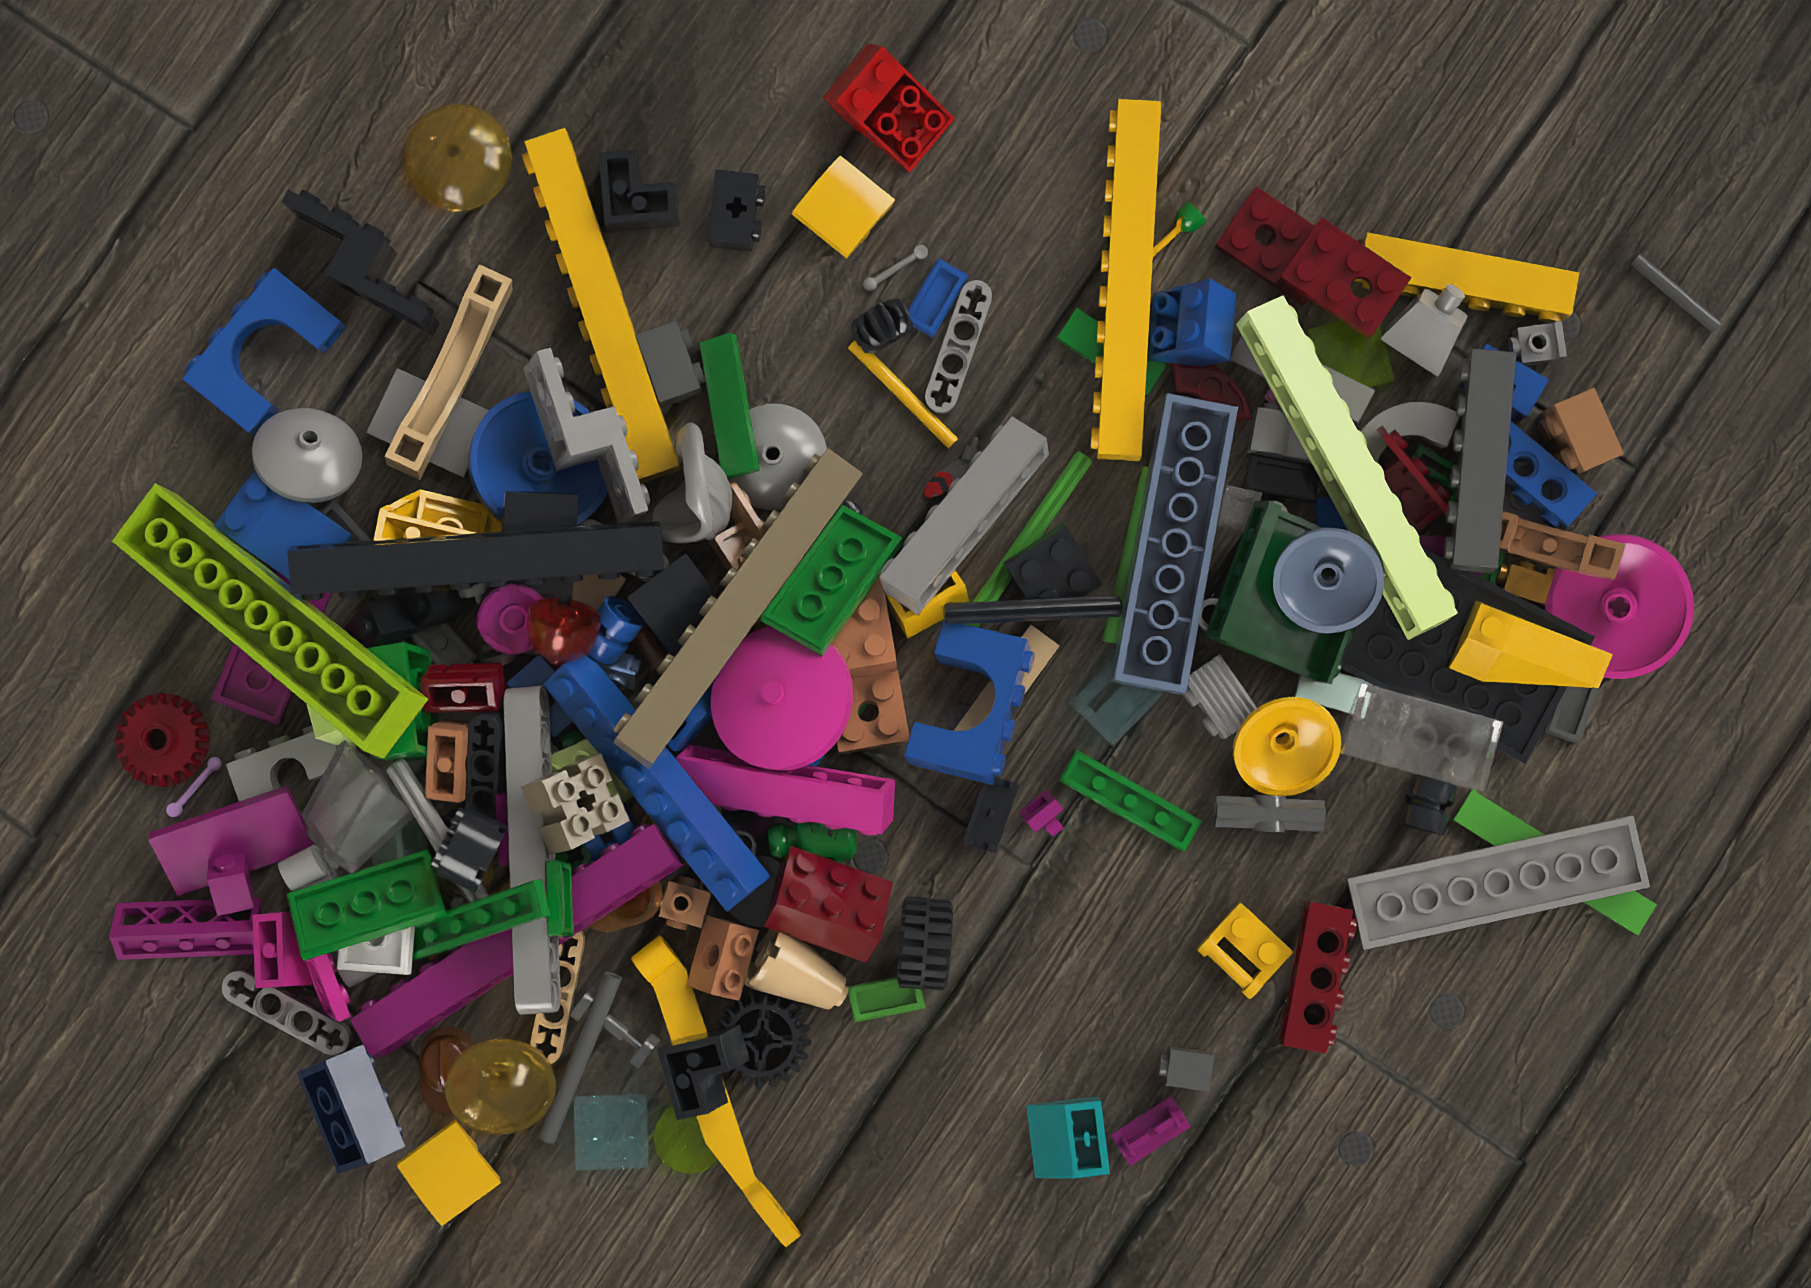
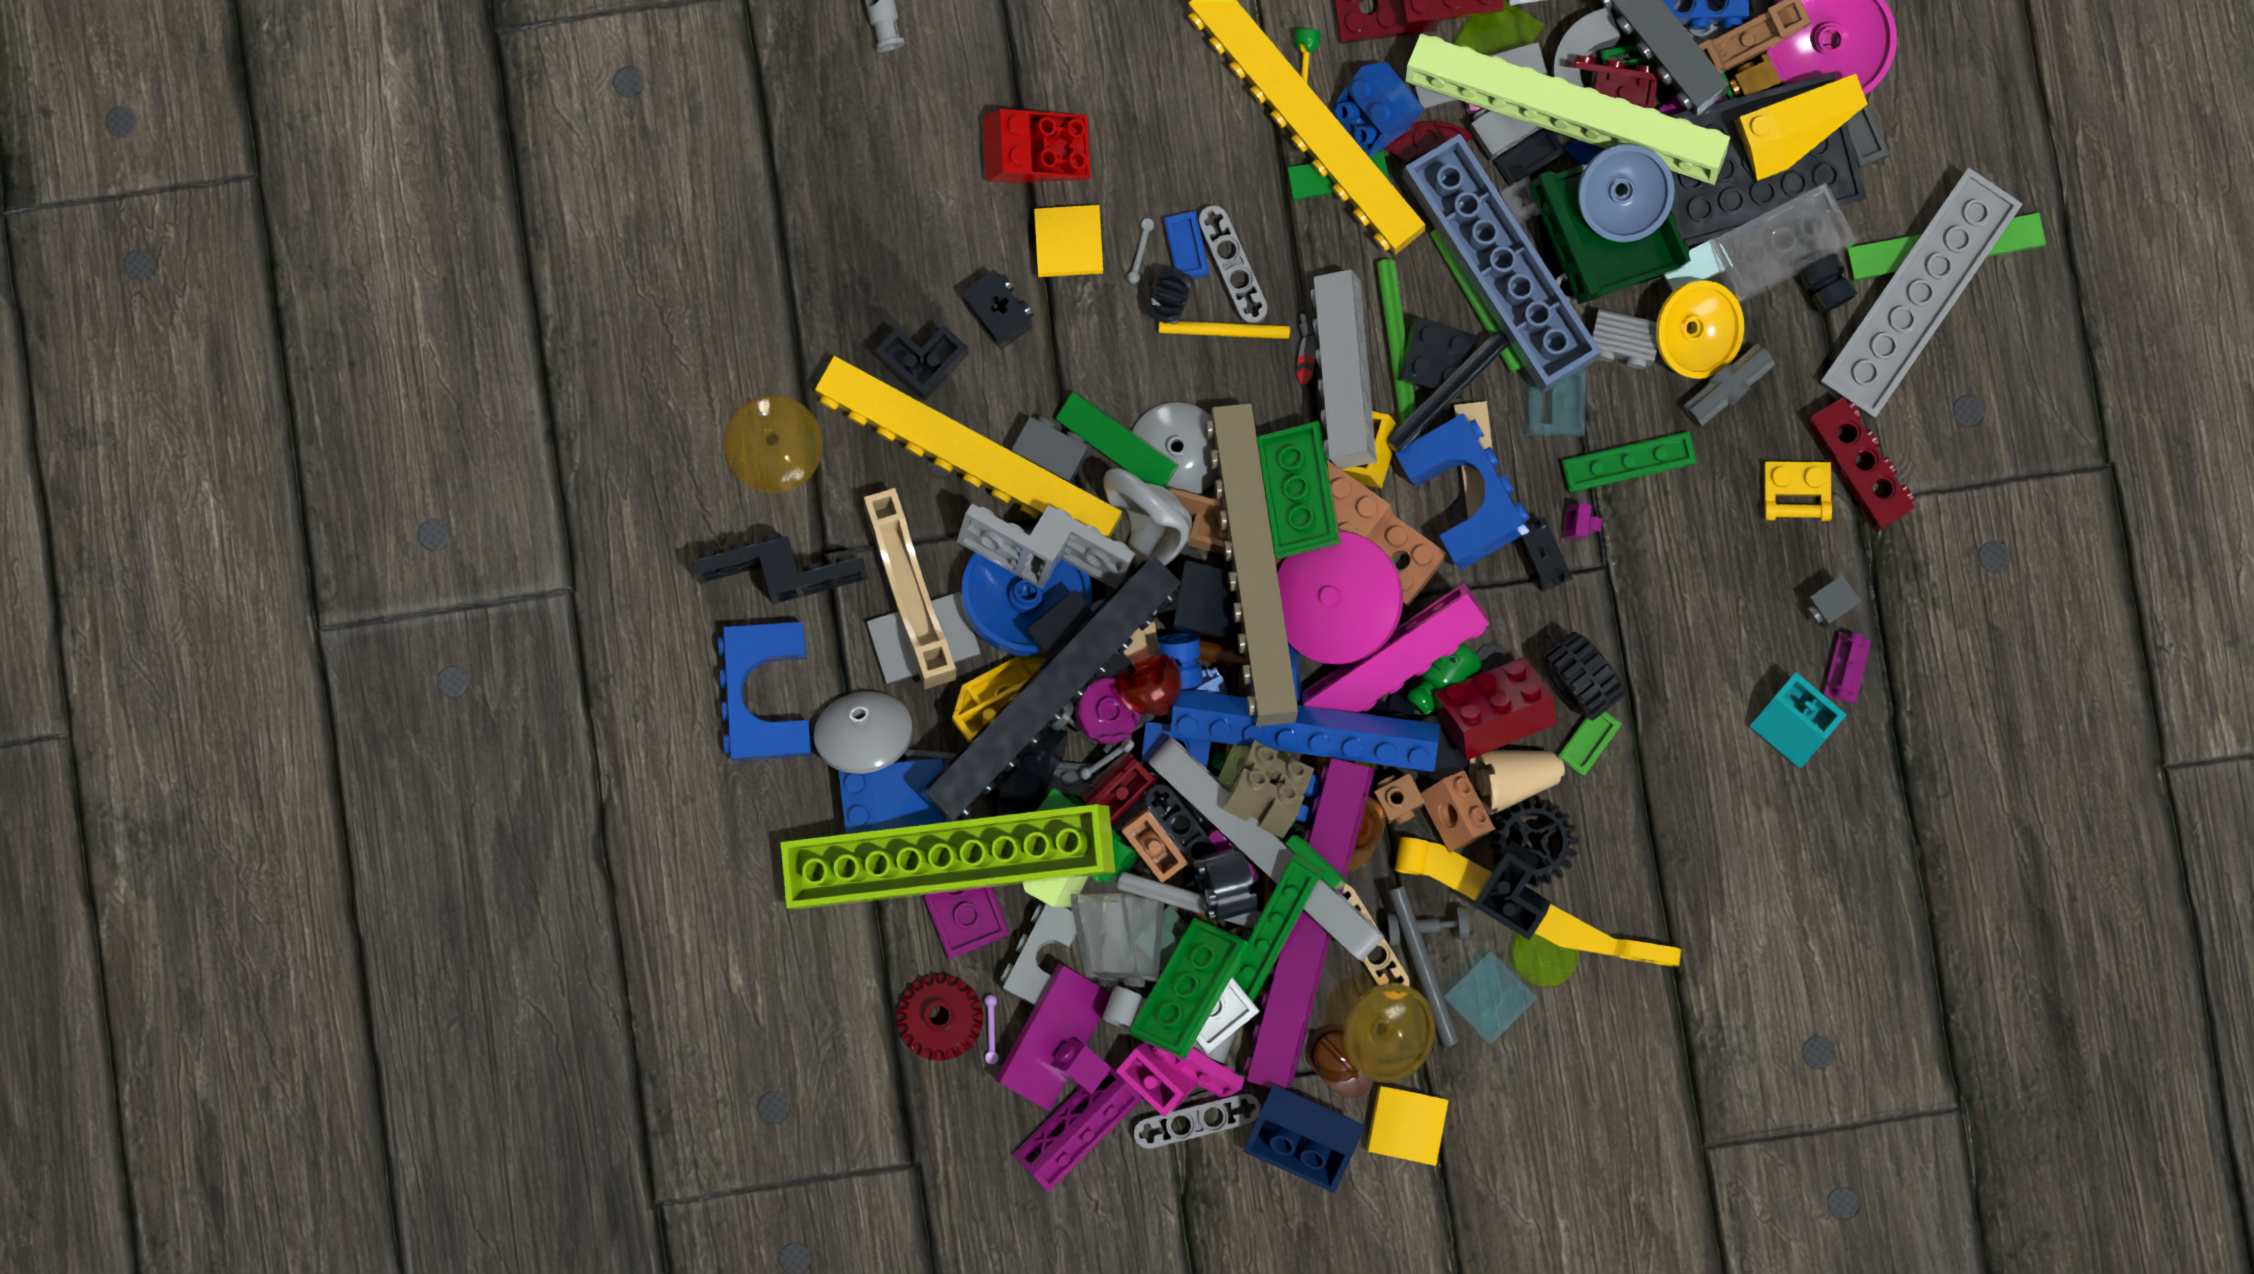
camera: 40 degrees left, 5 degrees down
(501, 660) = (1086, 773): none -> light grey hinge

